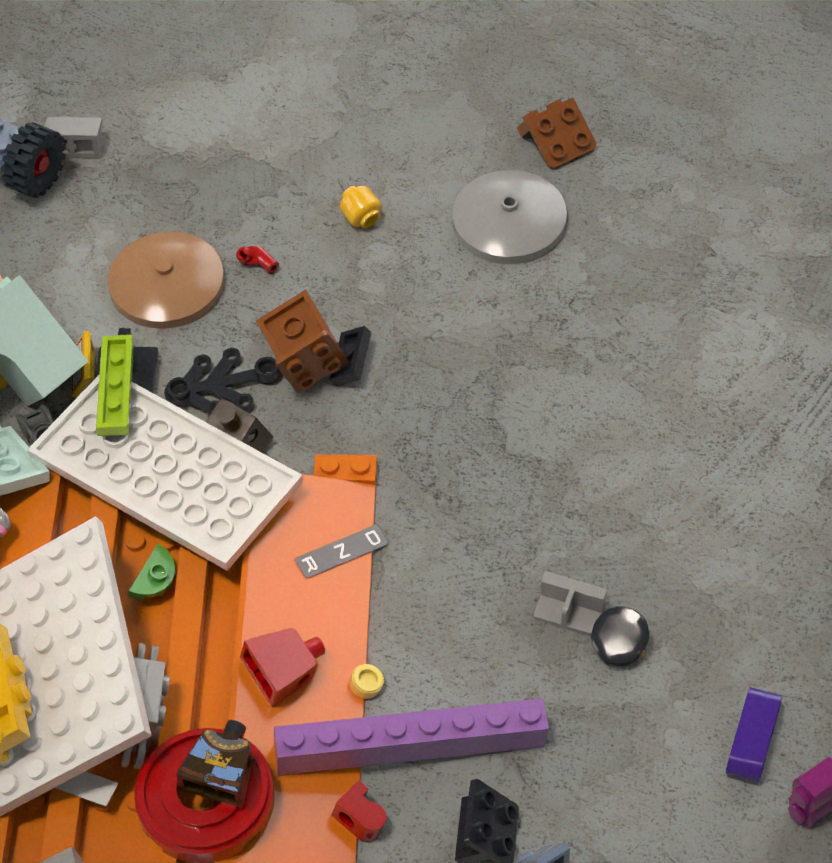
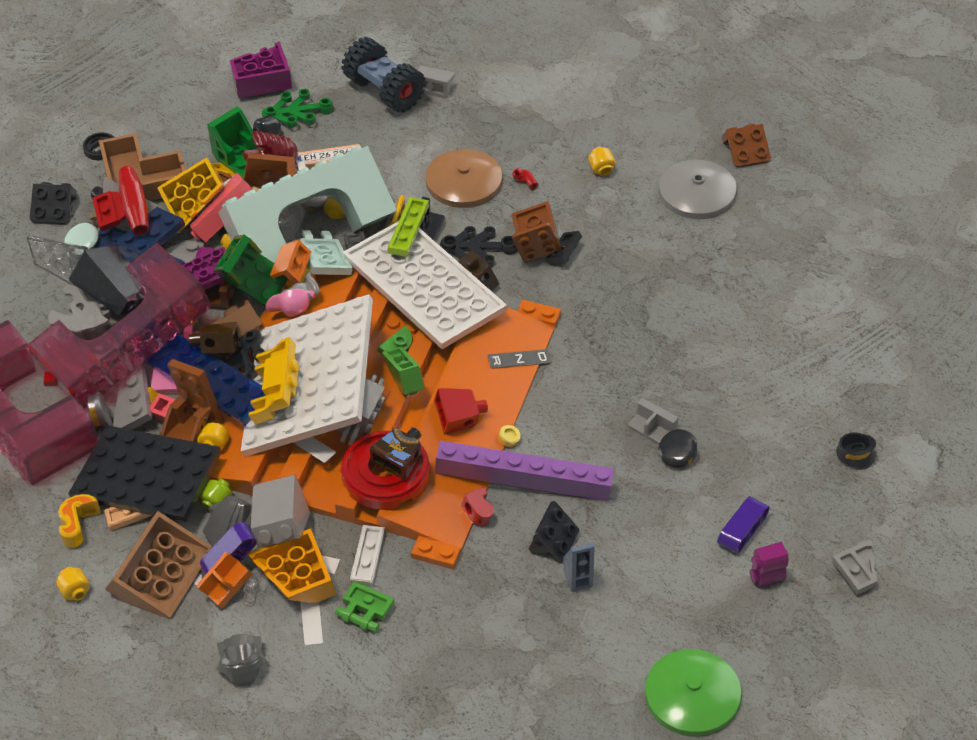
camera: 15 degrees right, 5 degrees down
(181, 621) = (404, 370): none -> bright green slope

